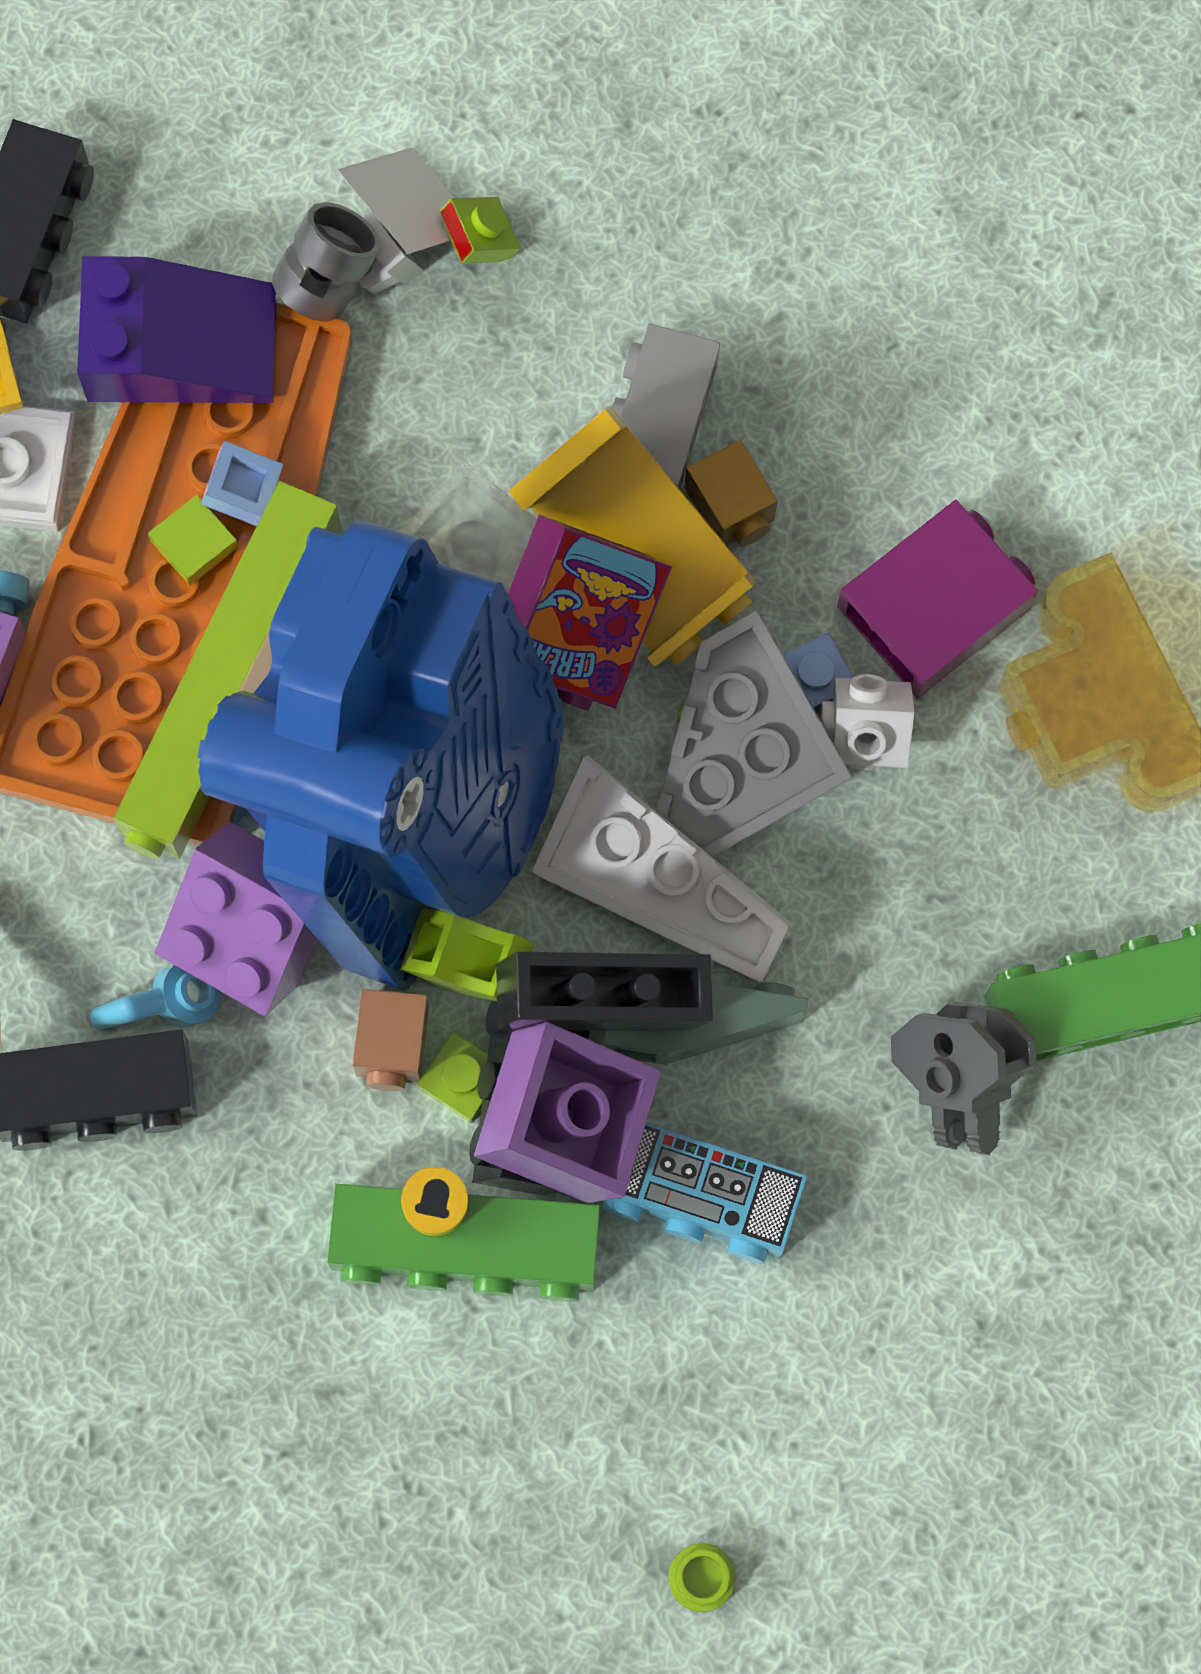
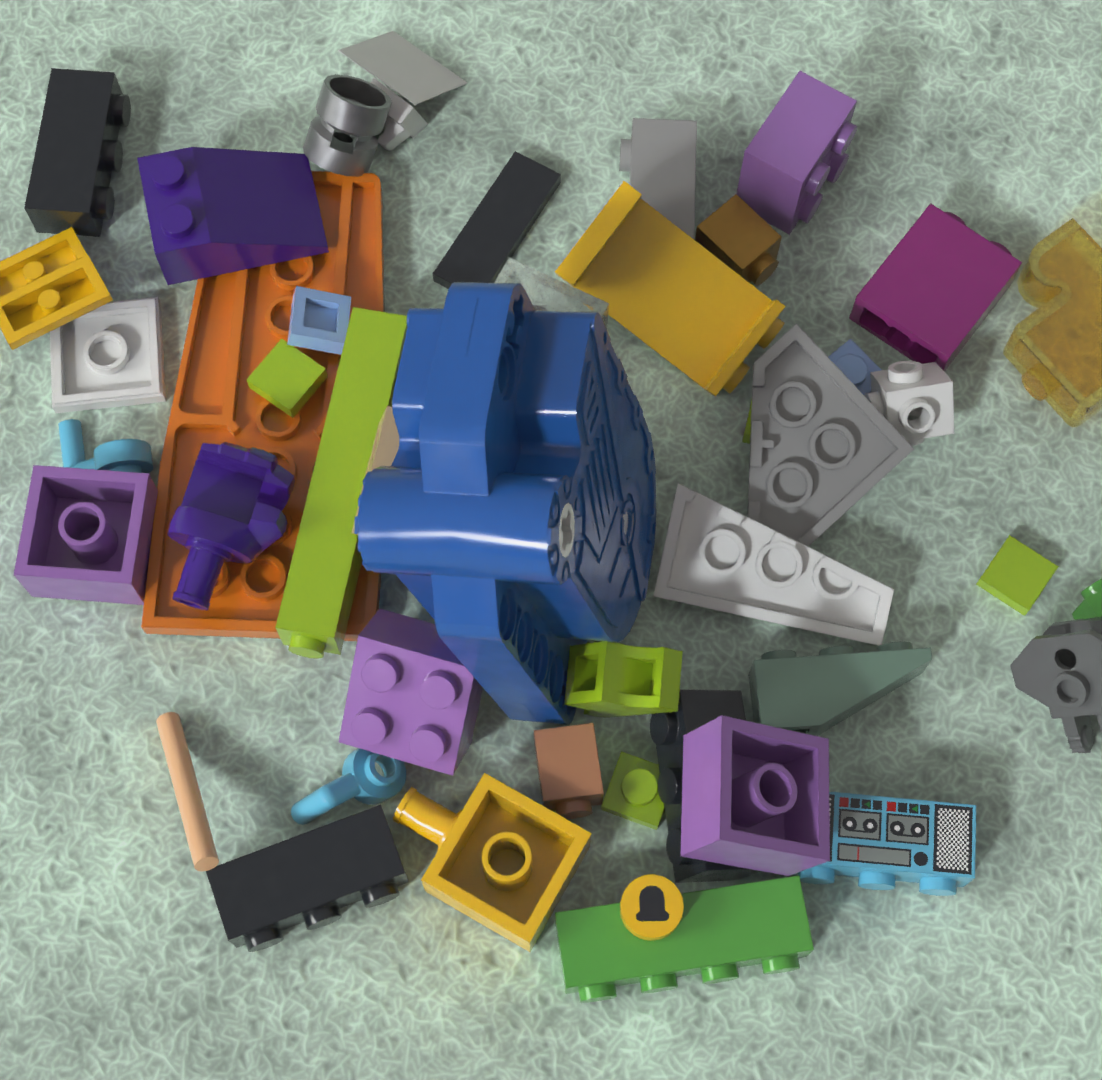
camera: 10 degrees left, 5 degrees down
(92, 683) = (227, 515): none -> dark purple piece
(292, 1112) = (498, 857): none -> yellow brick
(470, 412) = (498, 223): none -> black tile
(479, 230) = (468, 79): lime plate -> none
(585, 608) = (661, 350): brick -> none
(604, 991) = (760, 678): black brick -> none
(820, 407) = (797, 152): none -> medium lavender brick
(935, 939) = (1017, 575): none -> lime tile

